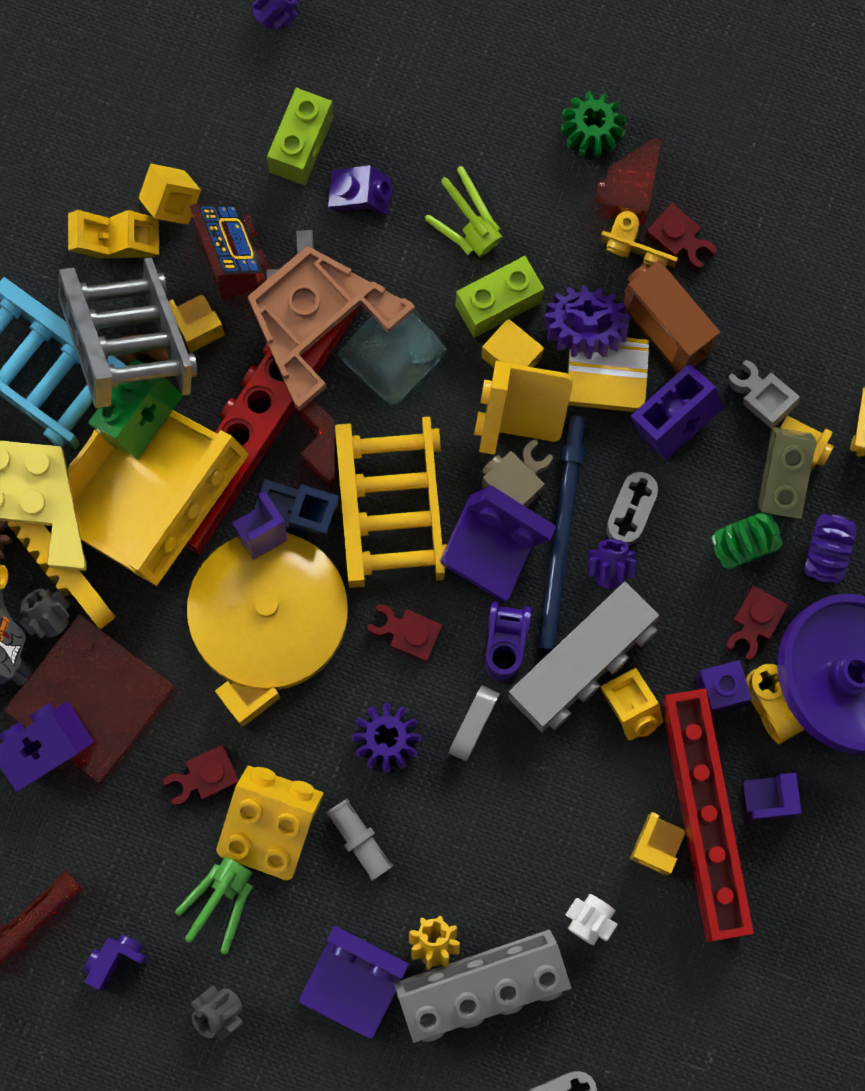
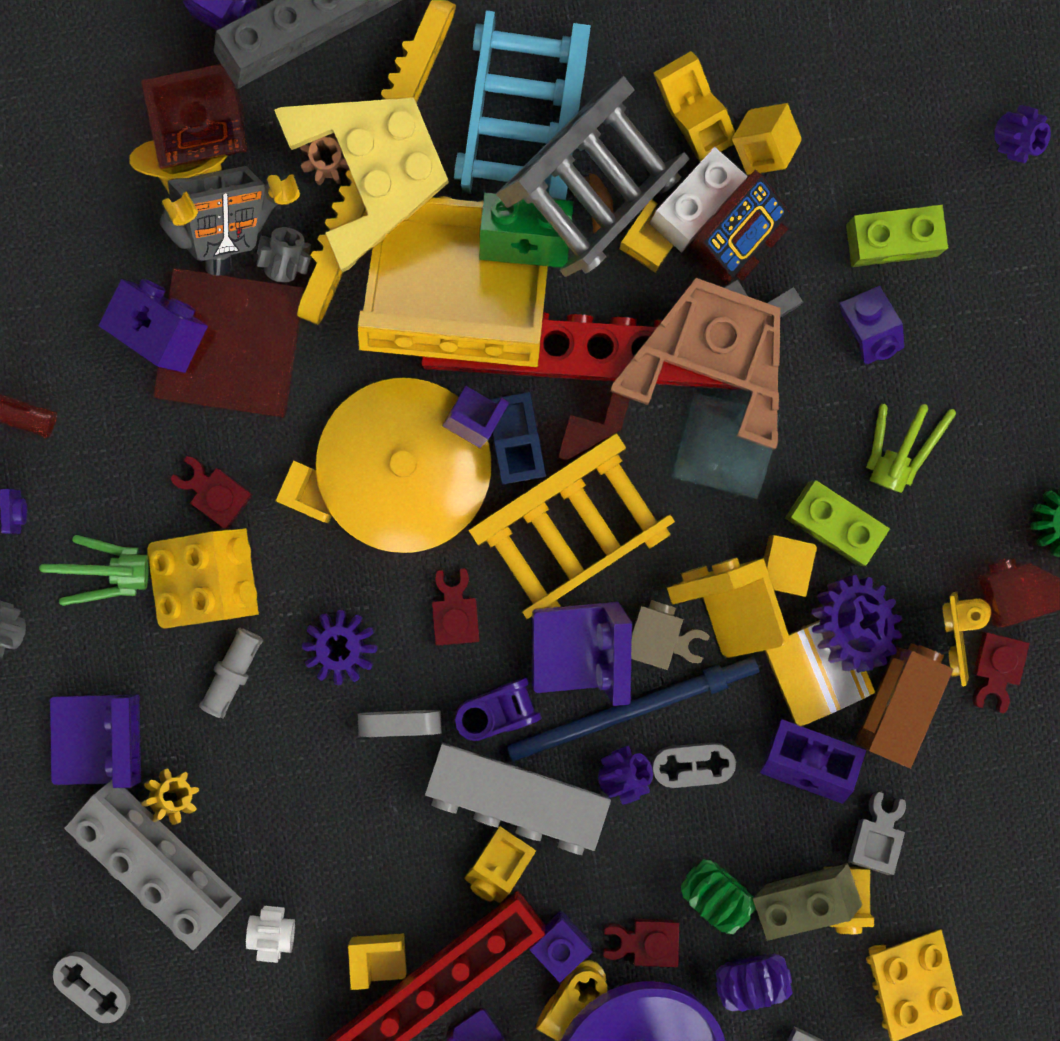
camera: 65 degrees right, 10 degrees up
(187, 268) = (697, 199): none -> white brick

